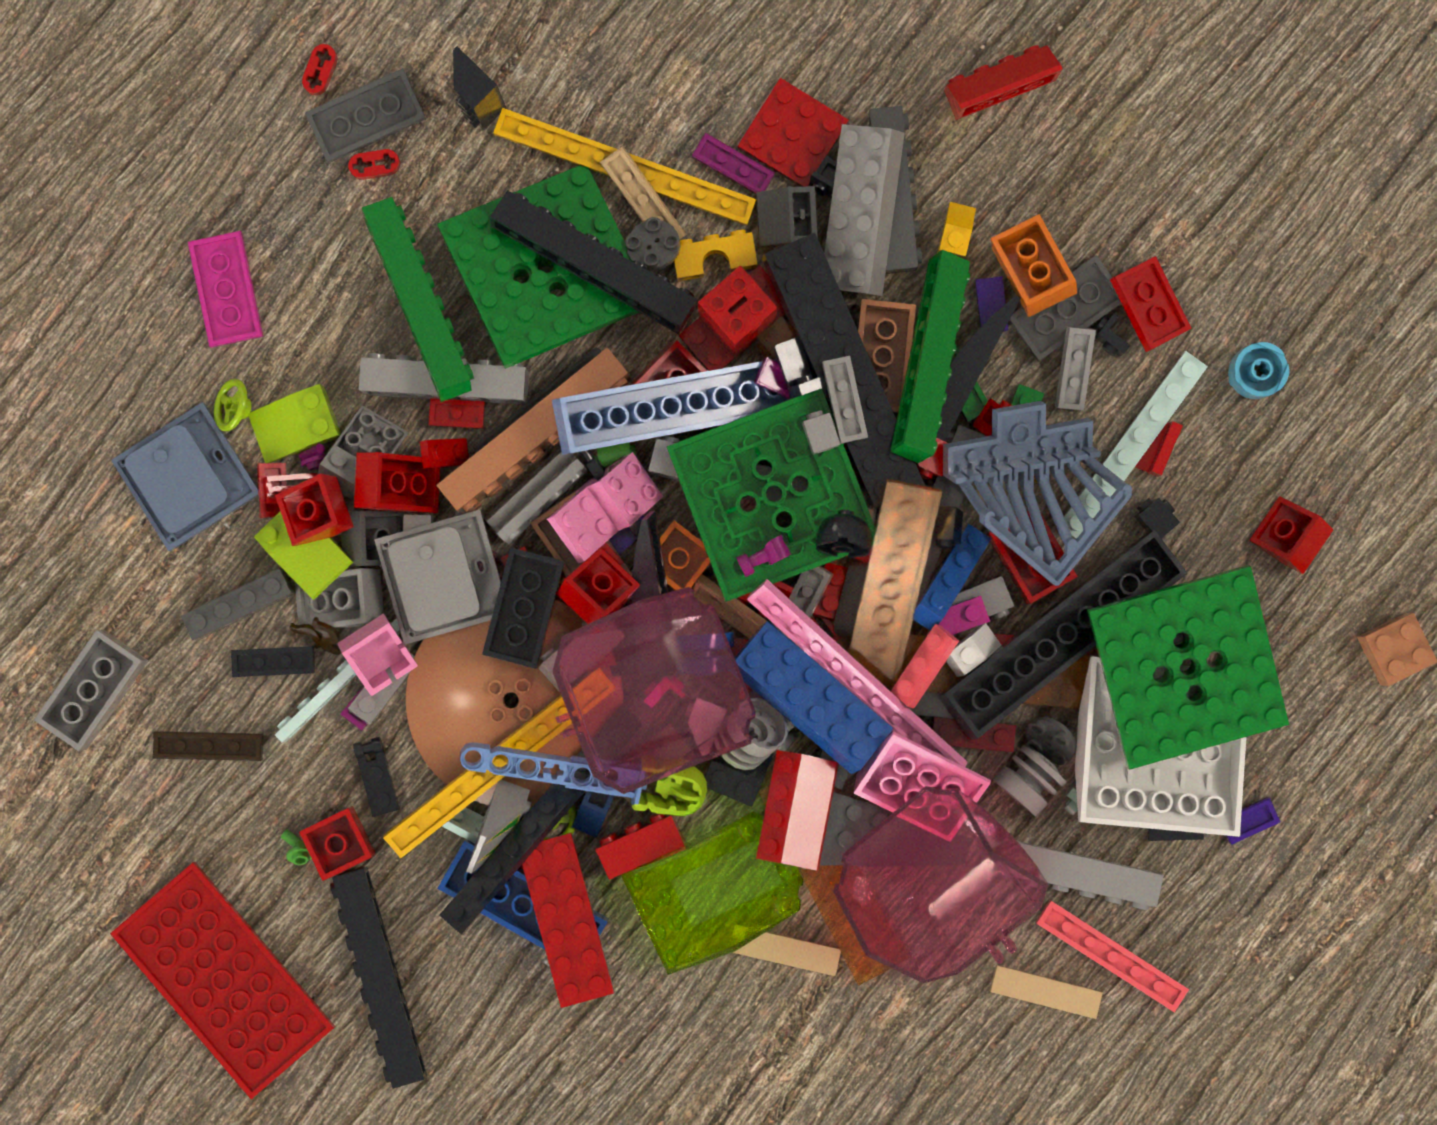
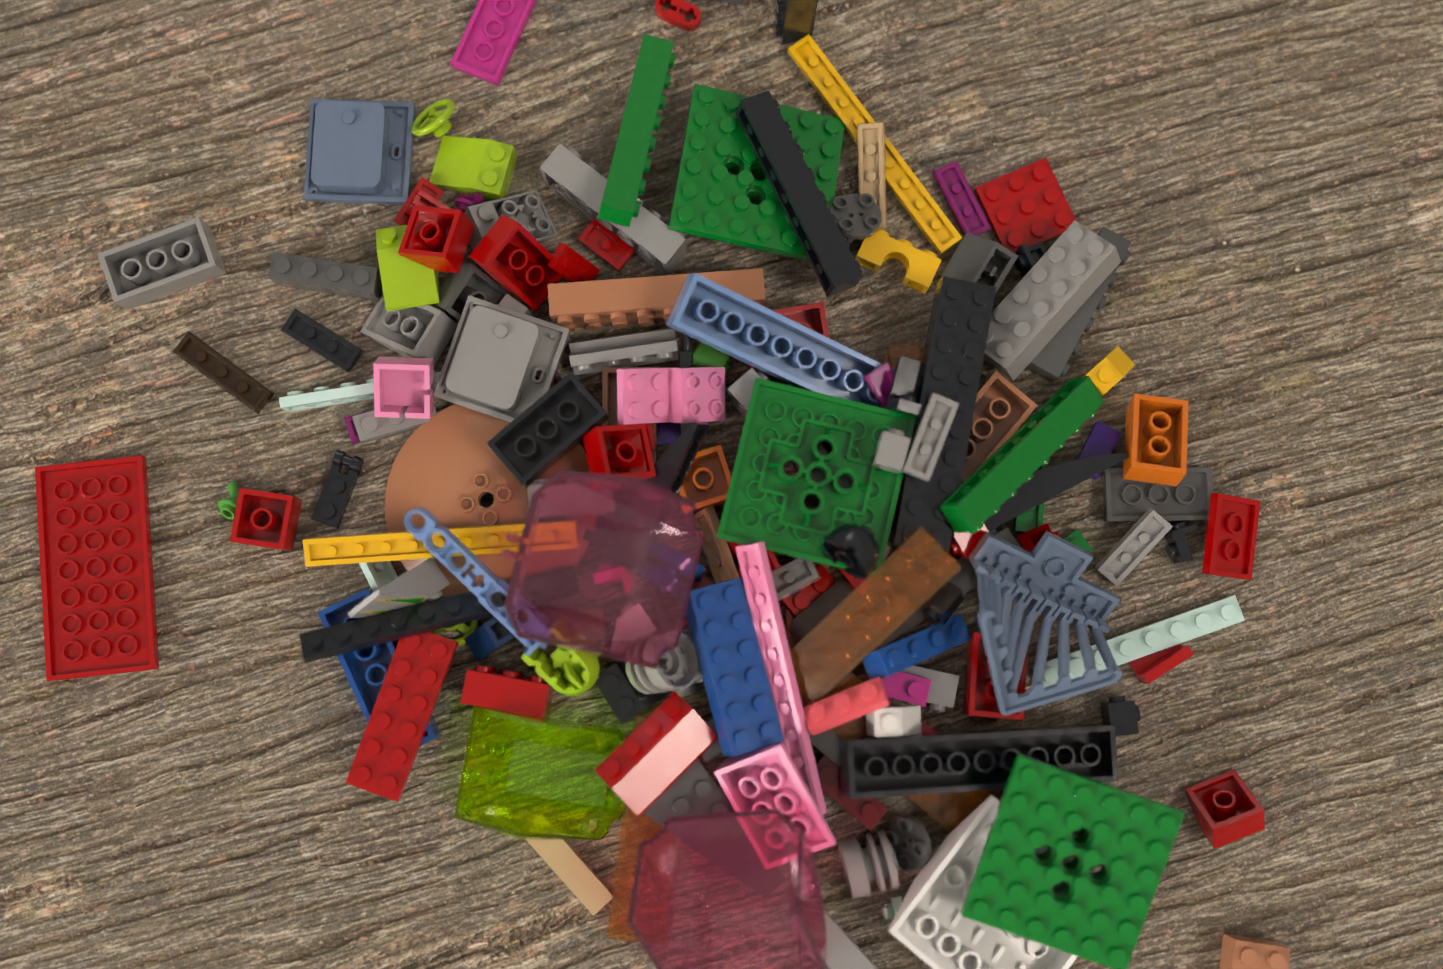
camera: 30 degrees right, 5 degrees down
(326, 642) = (372, 337): dark brown piece -> none
(379, 977) = (220, 655): black brick -> none
(732, 317) = (883, 312): red brick -> none
(773, 552) = (785, 522): magenta leg -> none
(1003, 81) = (1225, 278): red slope -> none
(1273, 366) = (1294, 664): medium azure brick -> none

